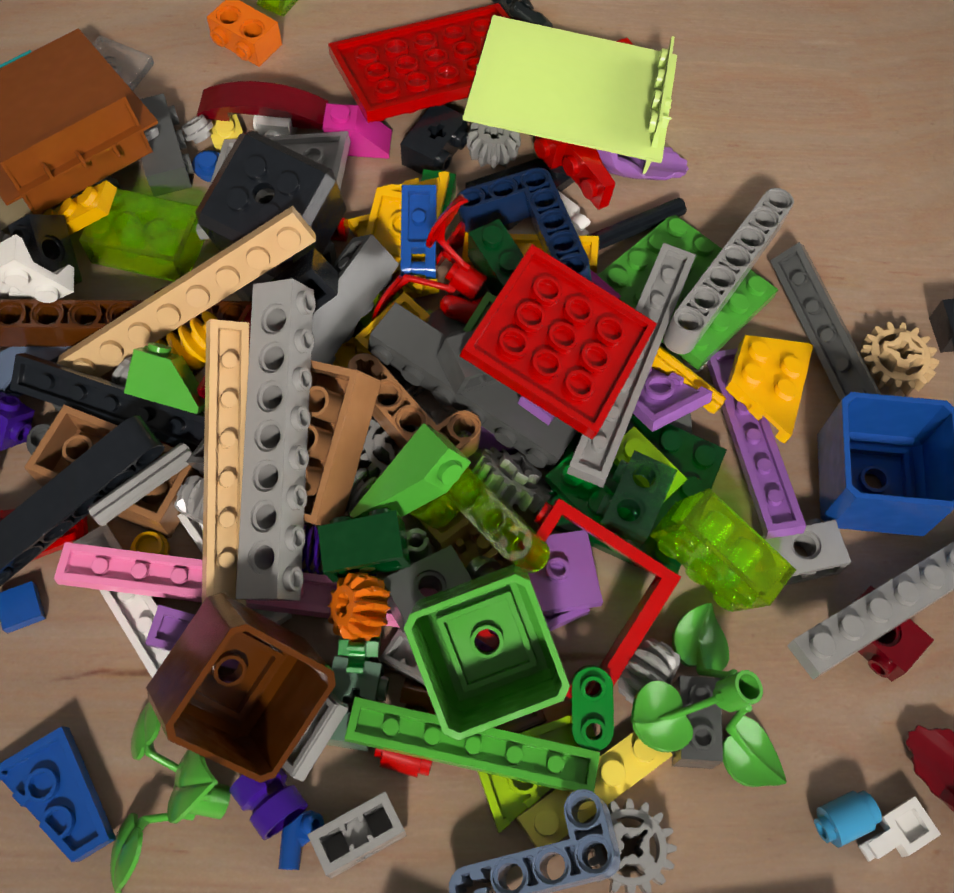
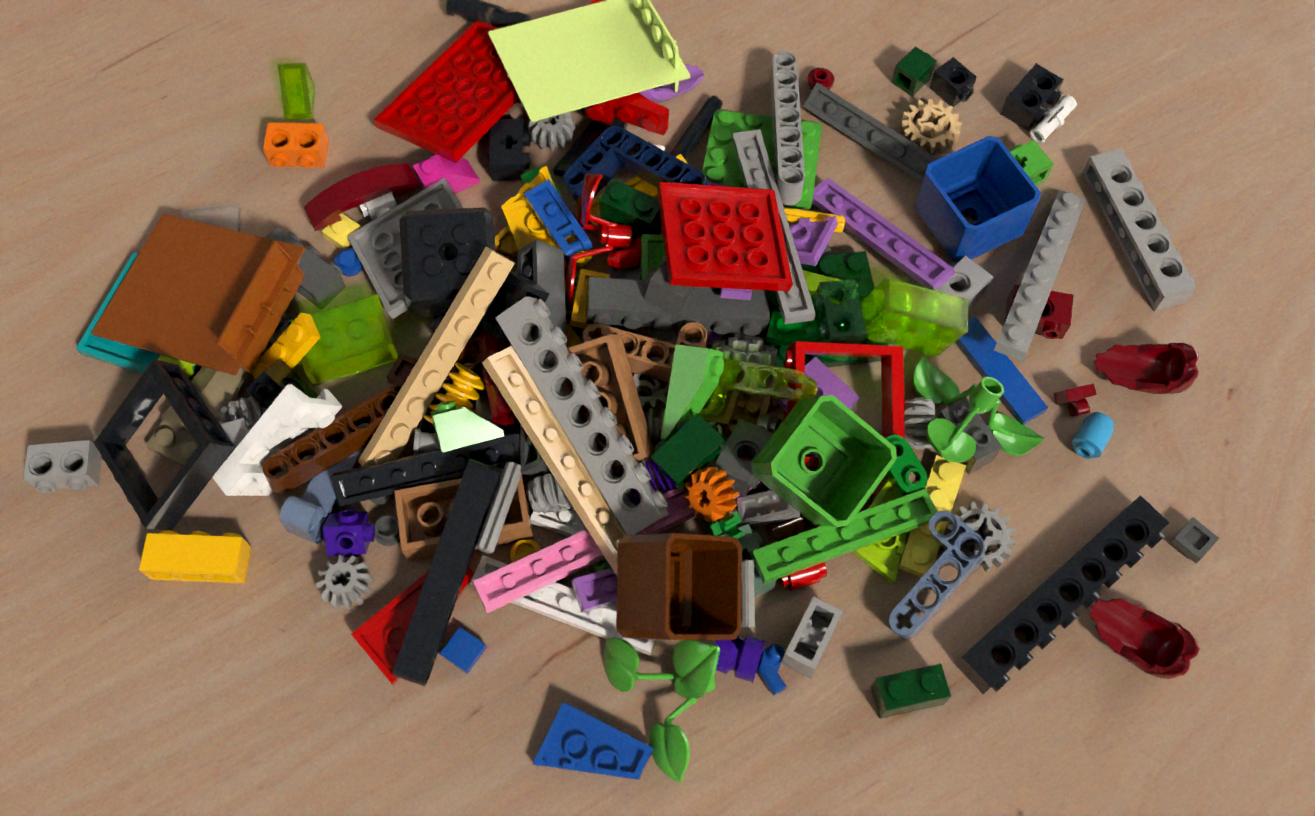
camera: 30 degrees left, 0 degrees up
(197, 129) = (322, 239): light grey plate -> none
(770, 379) = (862, 187): yellow wing -> none
(787, 679) = (1018, 393): none -> blue tile
(817, 242) = (821, 76): none -> dark red plate
(857, 761) = (1076, 399): none -> dark red tile
(905, 828) = (1130, 422): white plate -> none
(920, 289) = (913, 71): none -> dark green brick

